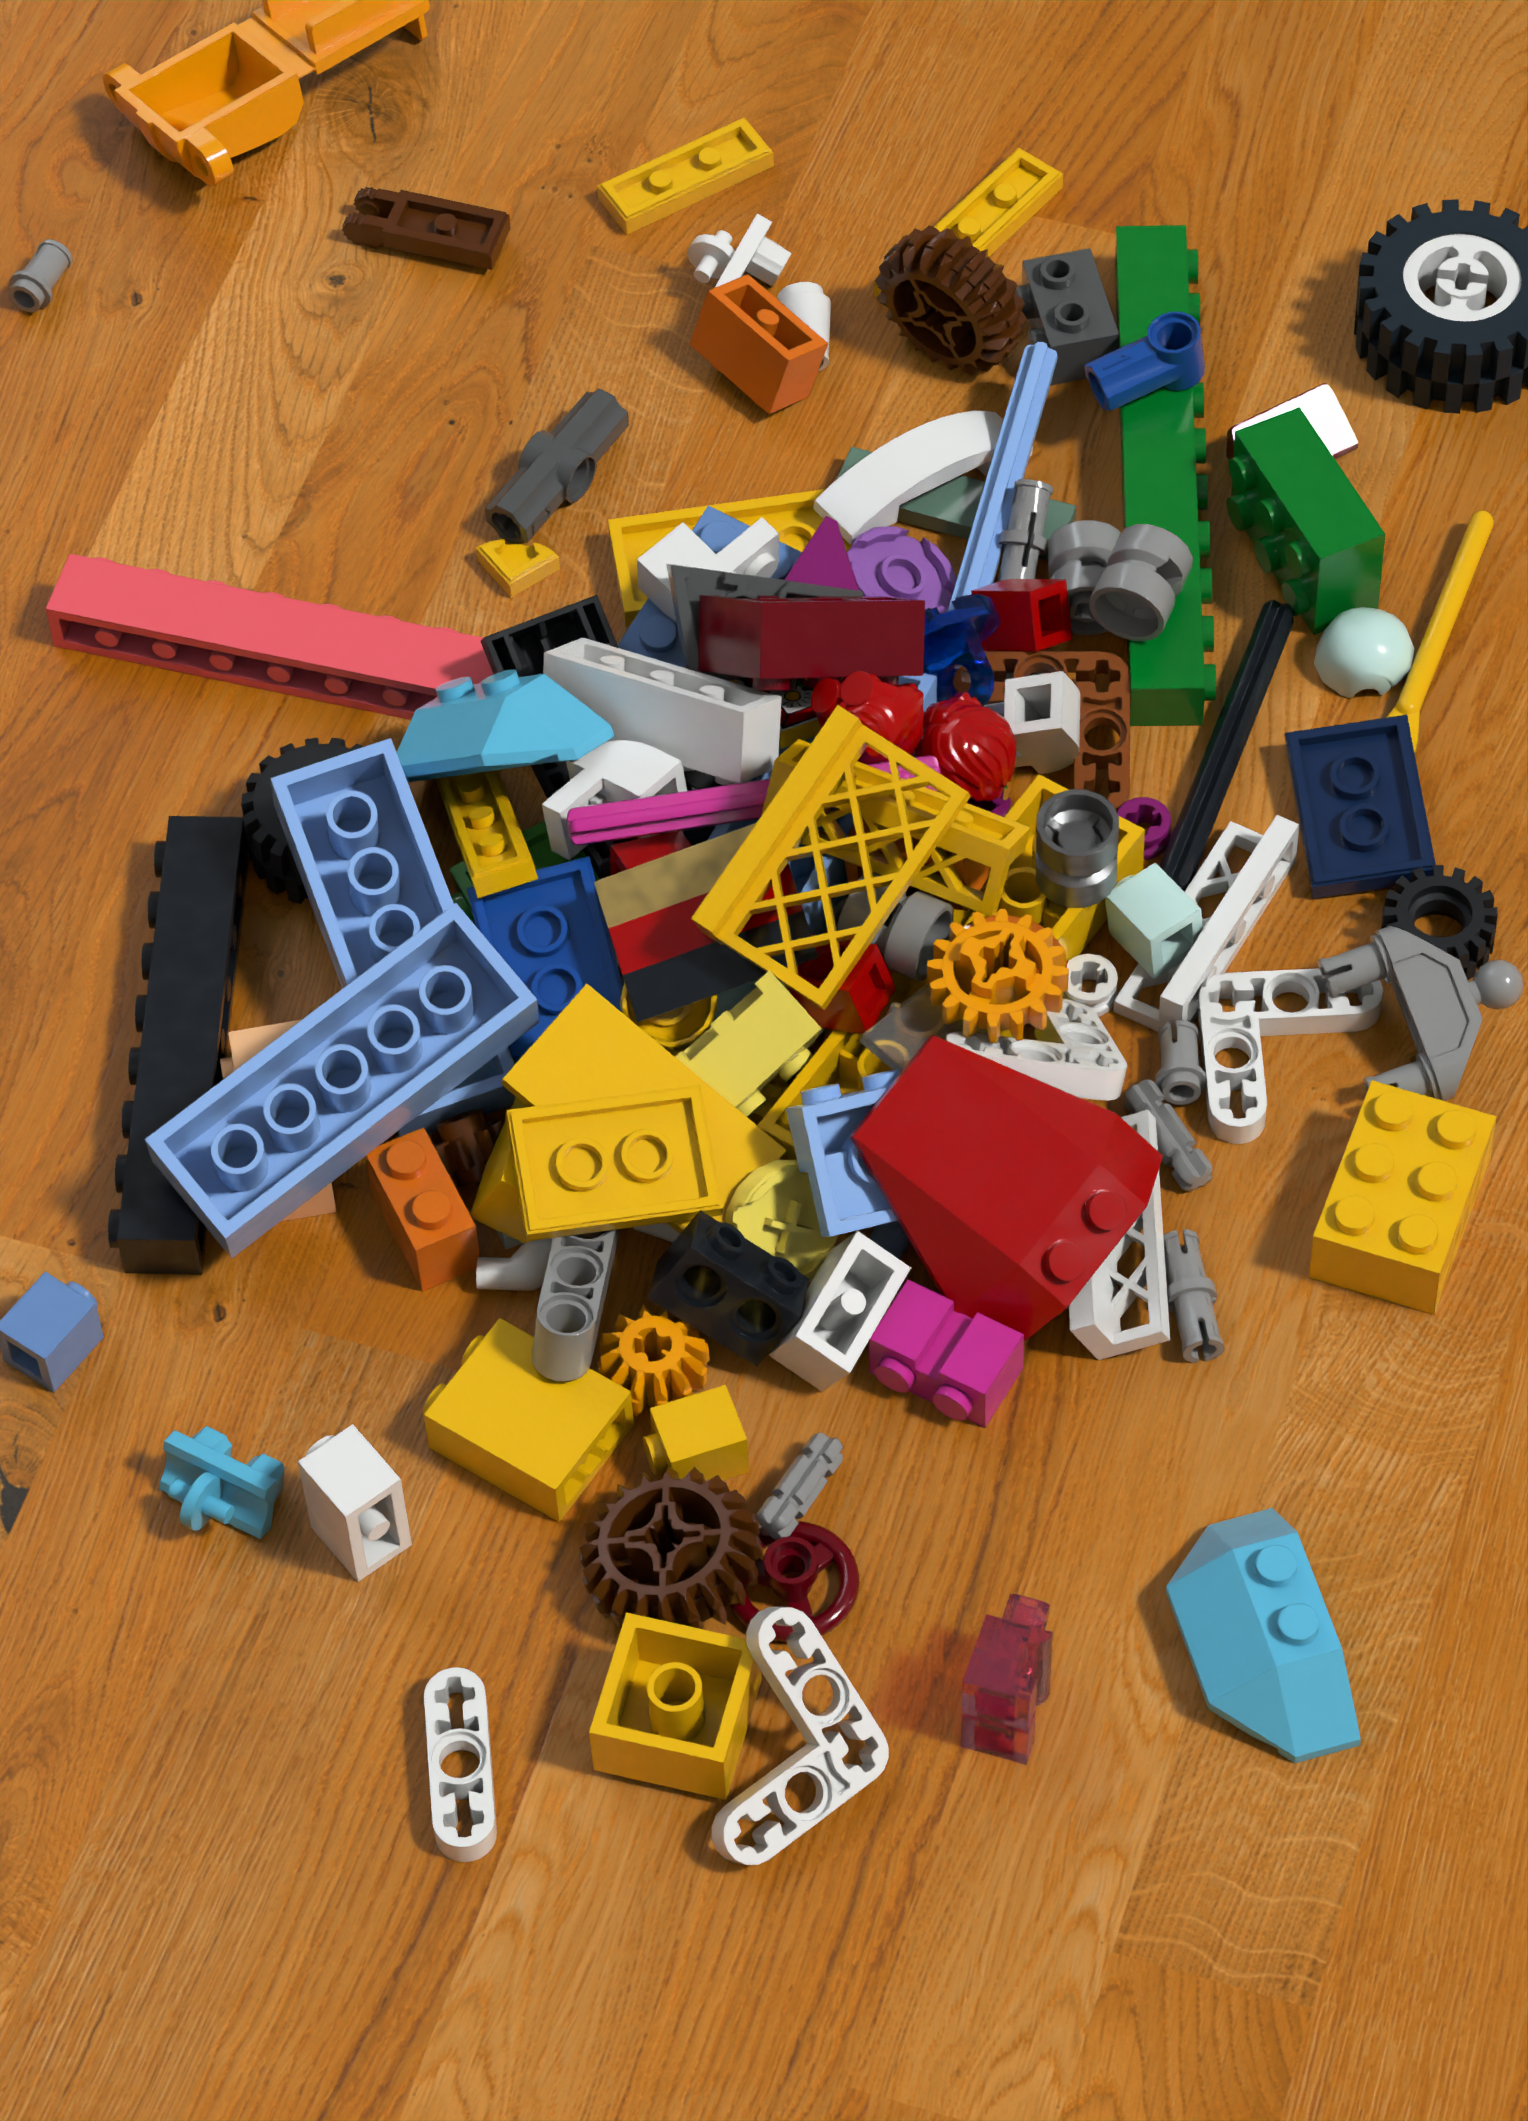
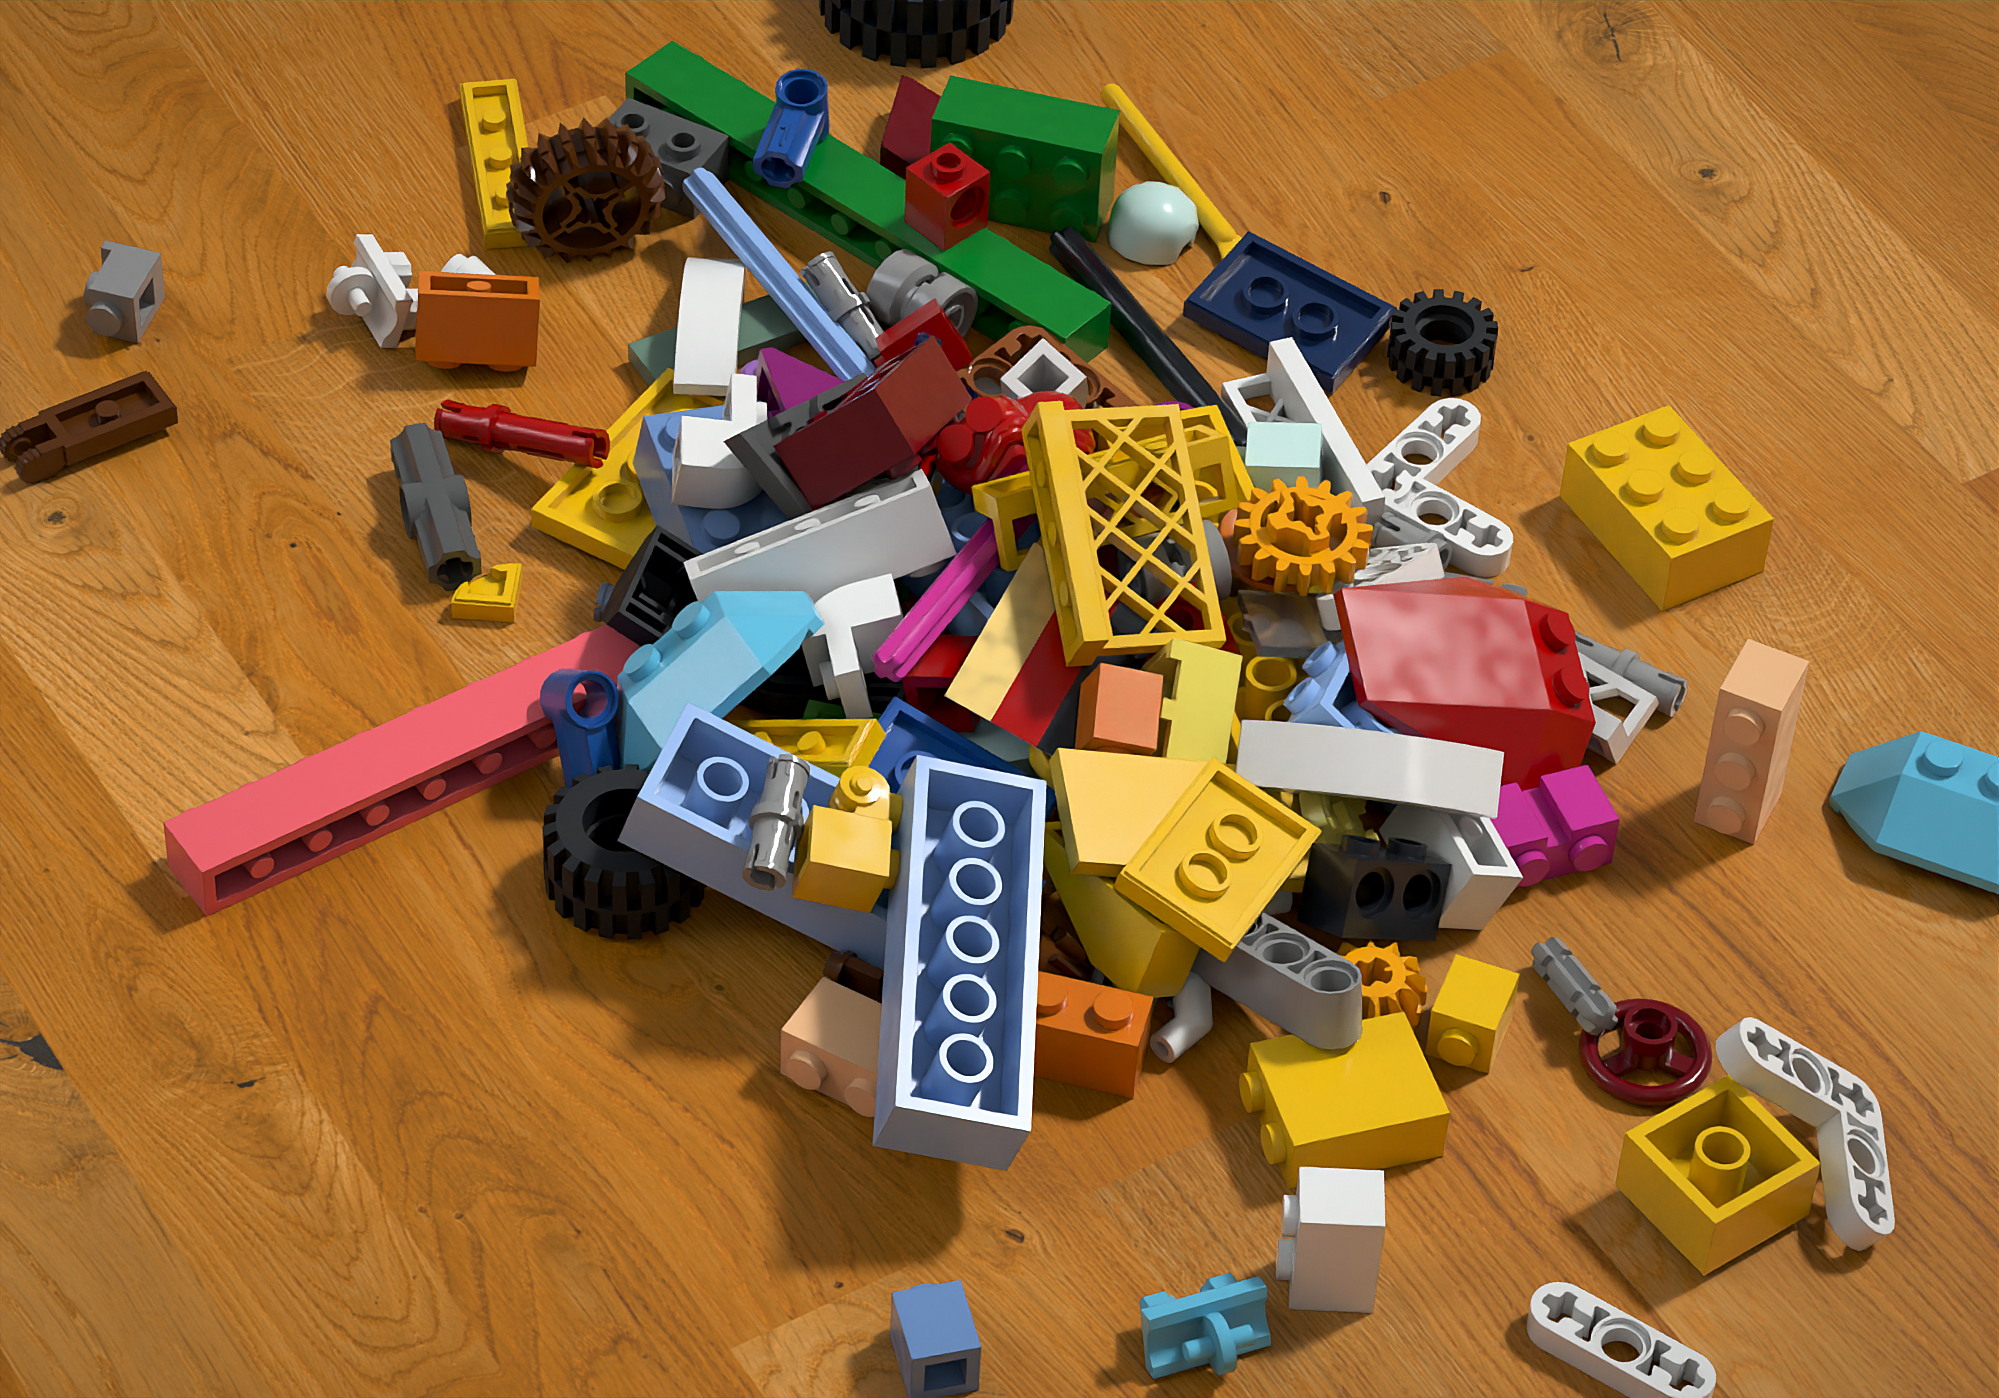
camera: 55 degrees left, 10 degrees down
(182, 1030) = (738, 1077): black brick -> none
(338, 874) = (776, 822): none -> light grey pin
(354, 935) = (846, 847): none -> yellow brick
(393, 706) = (584, 738): none -> blue piece
(573, 142) = (124, 291): none -> light grey brick
(641, 1535) = (1563, 1069): reddish brown gear -> none
(672, 444) = (501, 430): none -> red pin
(681, 1000) = (1119, 711): none -> orange brick
(685, 175) = (233, 265): yellow tile -> none
(803, 1197) = (1370, 766): none -> white slope
(1007, 1680) = (1886, 972): clear pink hips -> none
(1077, 848) = (1232, 408): flat silver wheel -> none
(1137, 1421) = (1751, 741): none -> light nougat brick
(1141, 582) = (997, 257): light grey wheel -> none
(1178, 498) = (946, 196): none -> red brick
(1433, 999) = (1528, 376): light grey connector -> none

